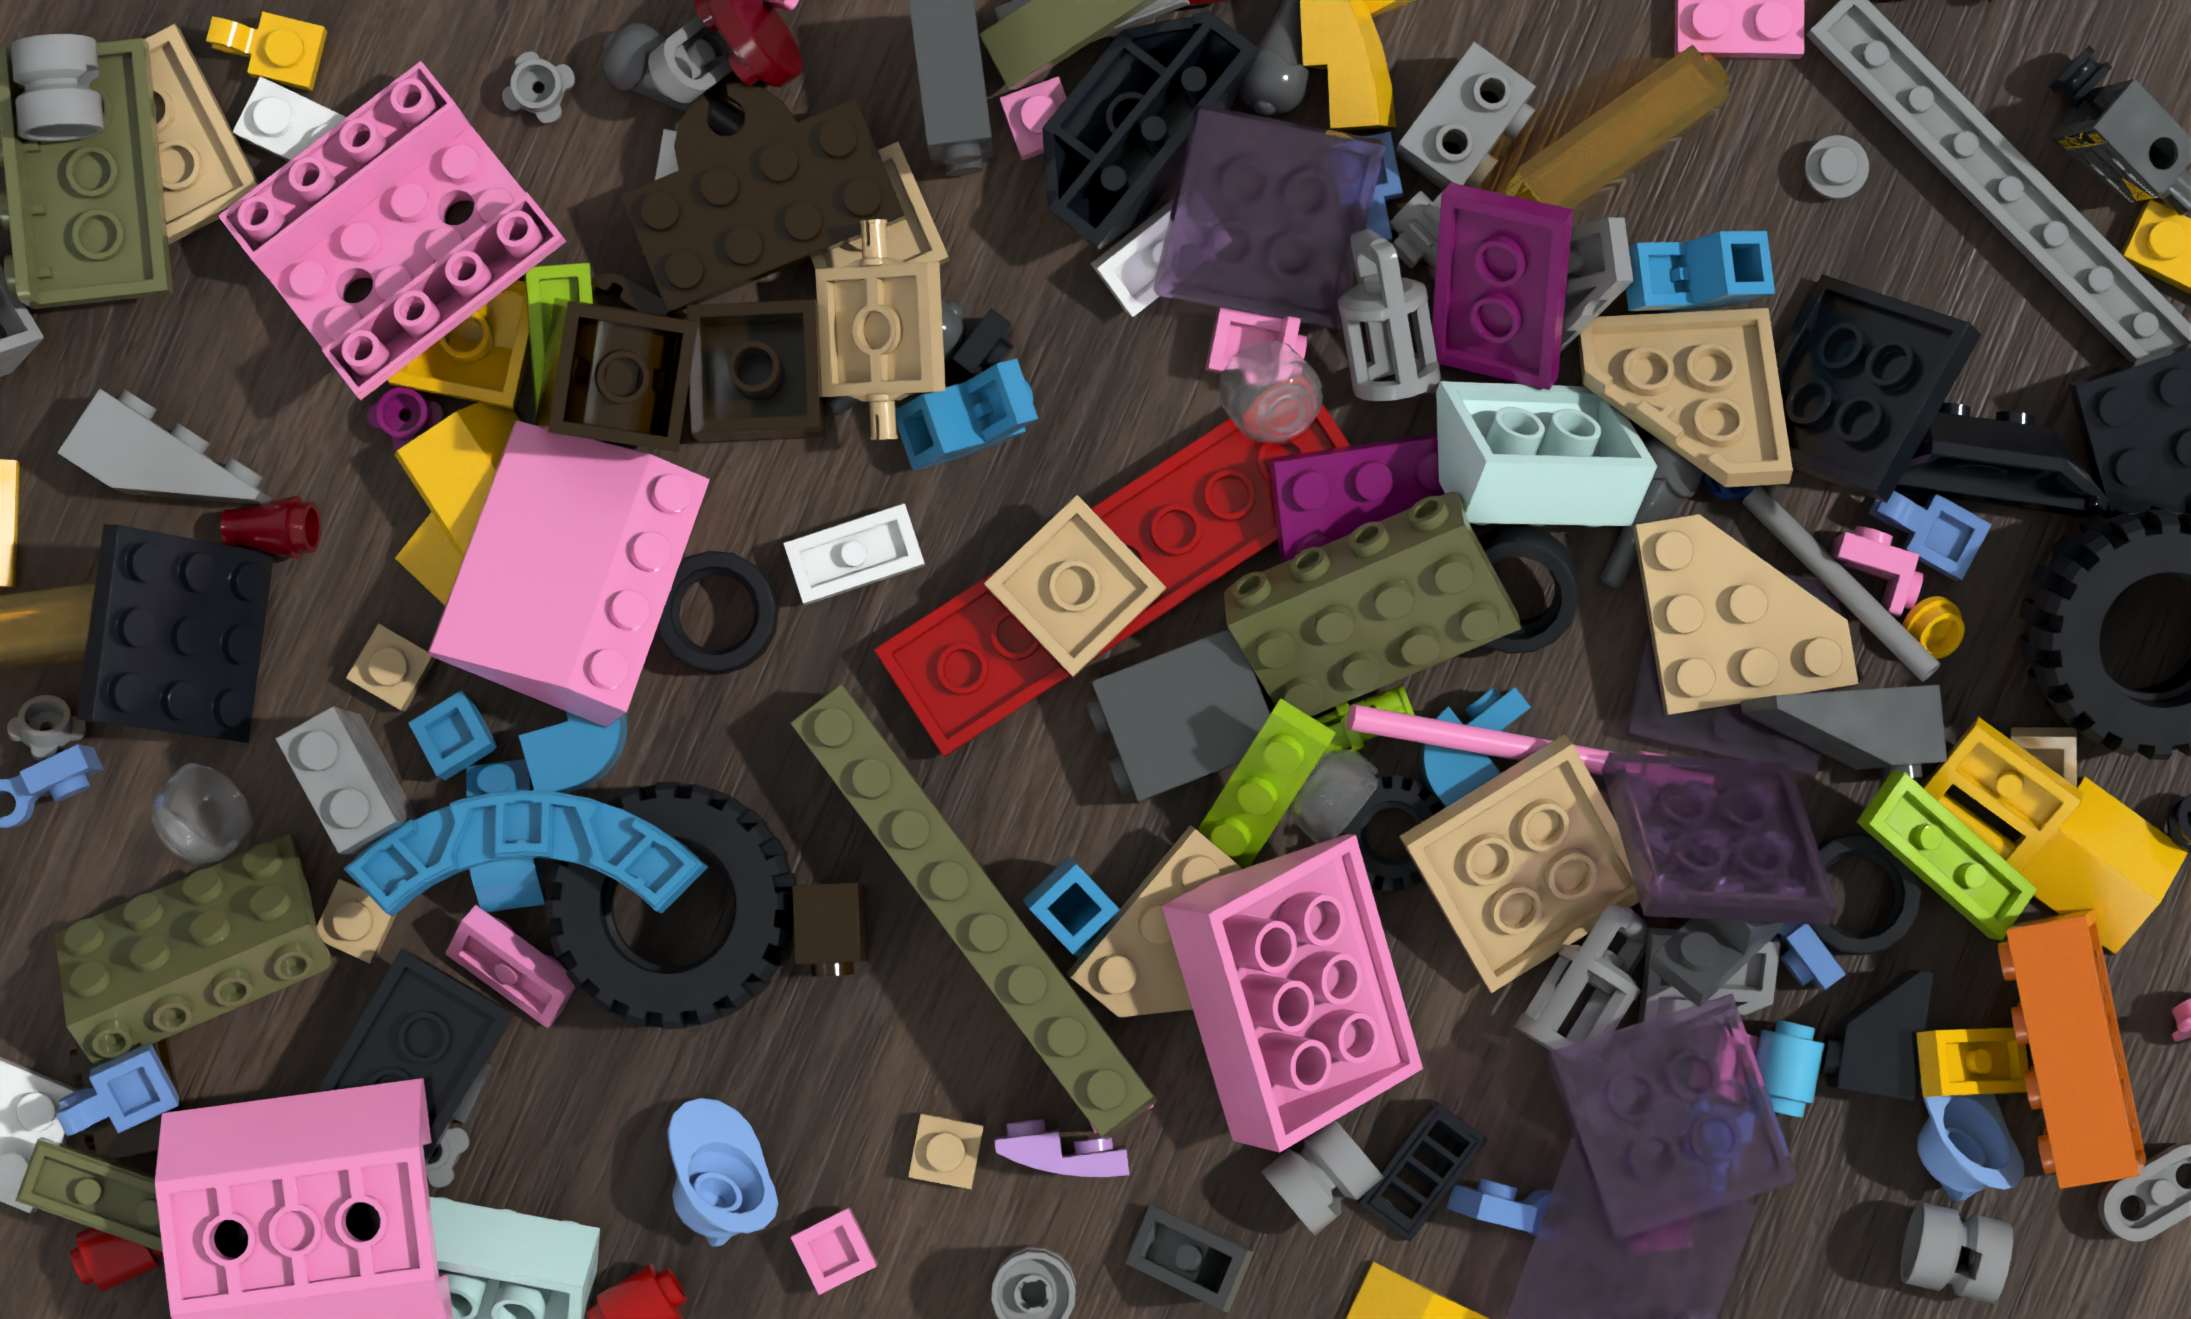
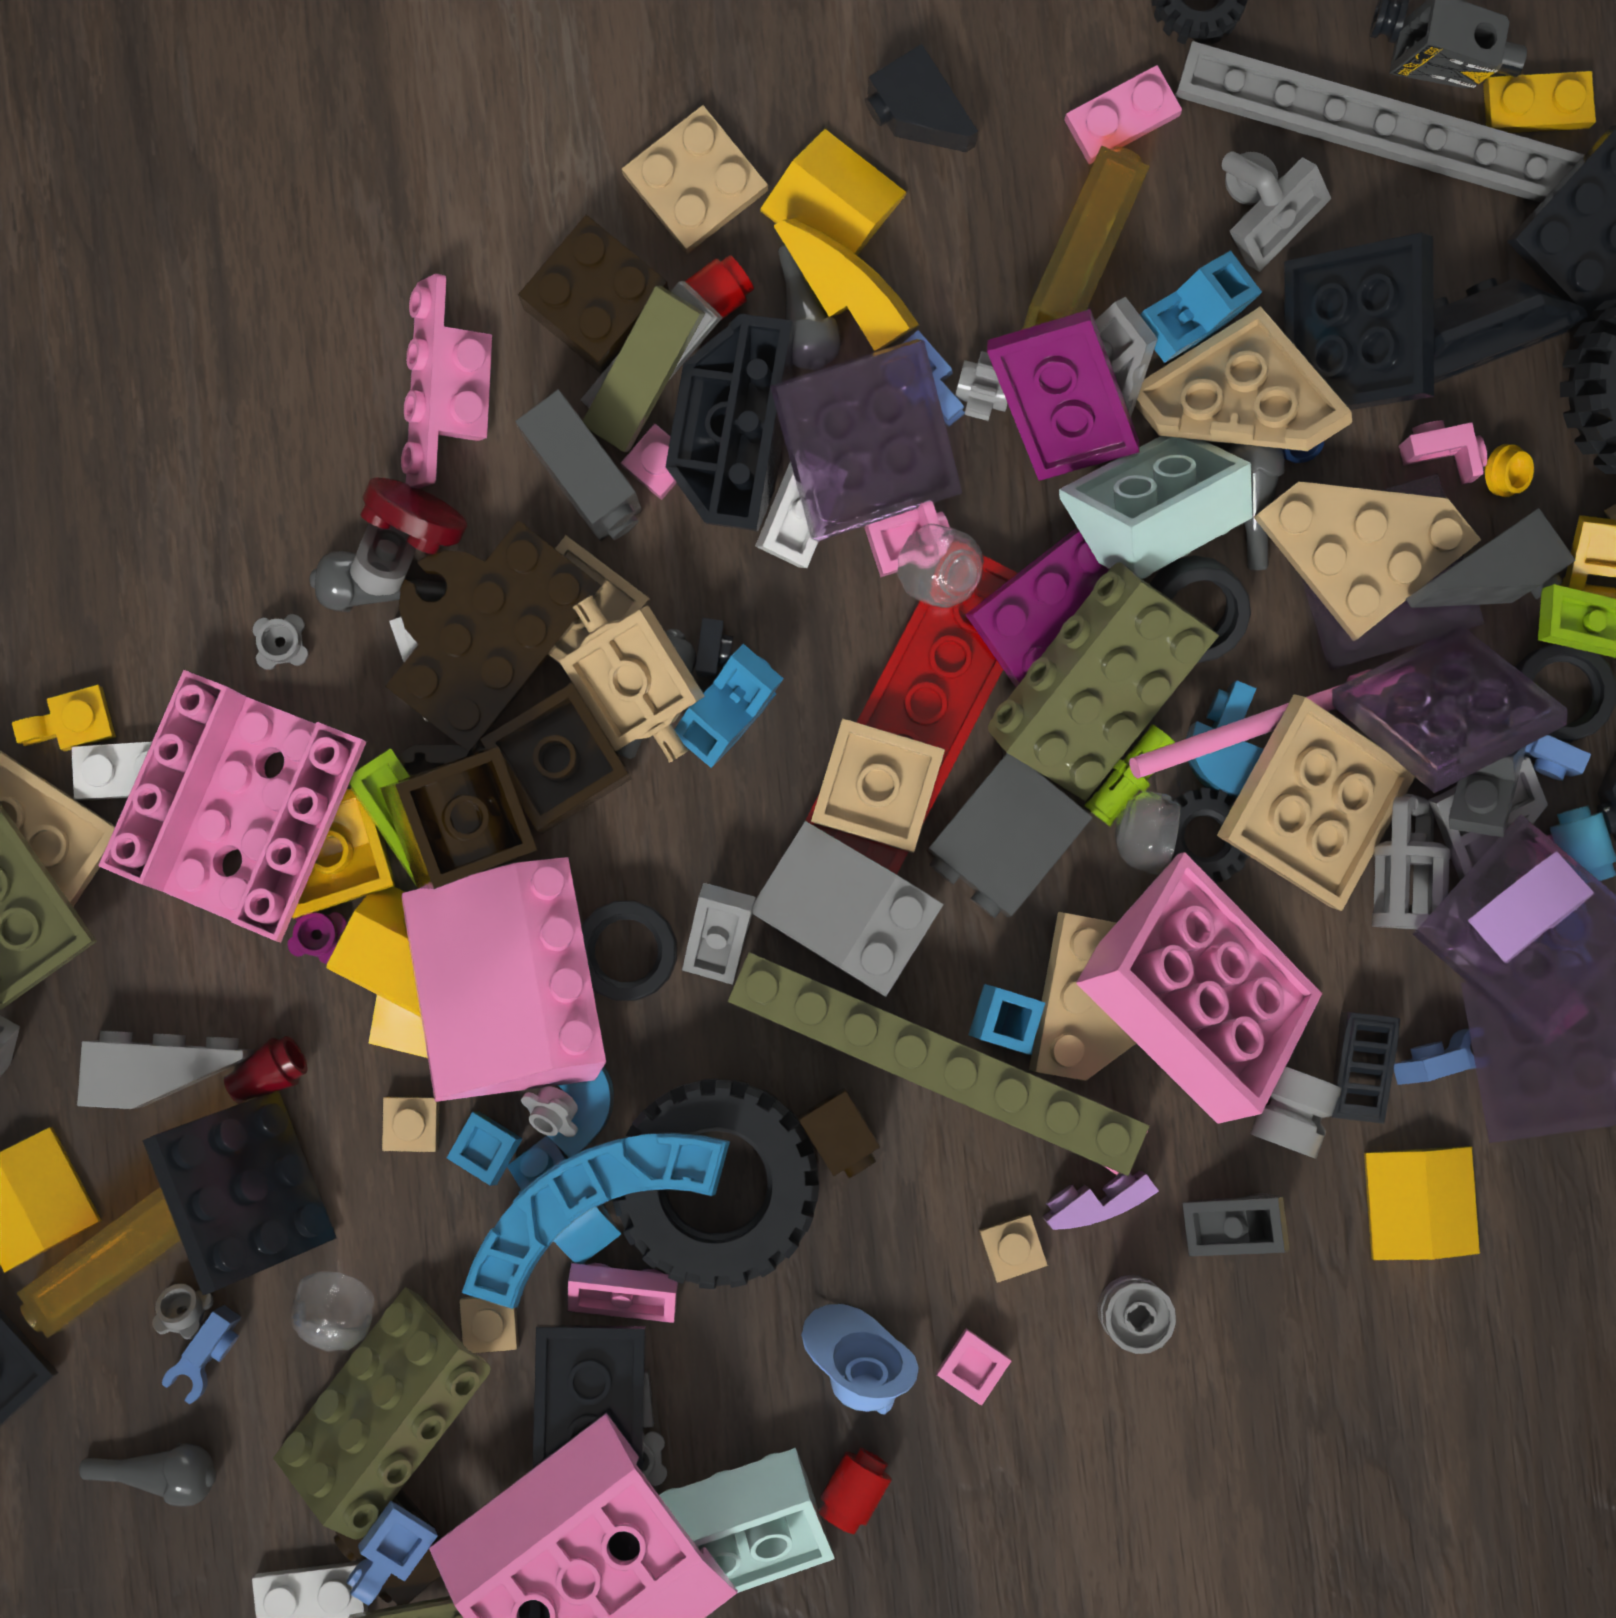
camera: 30 degrees left, 0 degrees up
(346, 779) = (427, 1226): light grey brick -> none
(542, 733) = (551, 1111): none -> light grey plate
(823, 647) = (718, 933): none -> light grey slope
(854, 554) = (702, 852): white plate -> none
(968, 696) = (846, 908): none -> light grey slope
(1265, 782) = (1097, 850): lime plate -> none
(1383, 303) = (983, 453): light grey piece -> none
(1467, 122) = (970, 291): light grey brick -> none
(1681, 1093) = (1531, 907): none -> lavender slope
(1841, 583) = (1426, 475): light grey piece -> none
(1848, 217) = (1280, 212): none -> light grey plate
(1939, 532) = (1472, 398): medium blue plate -> none

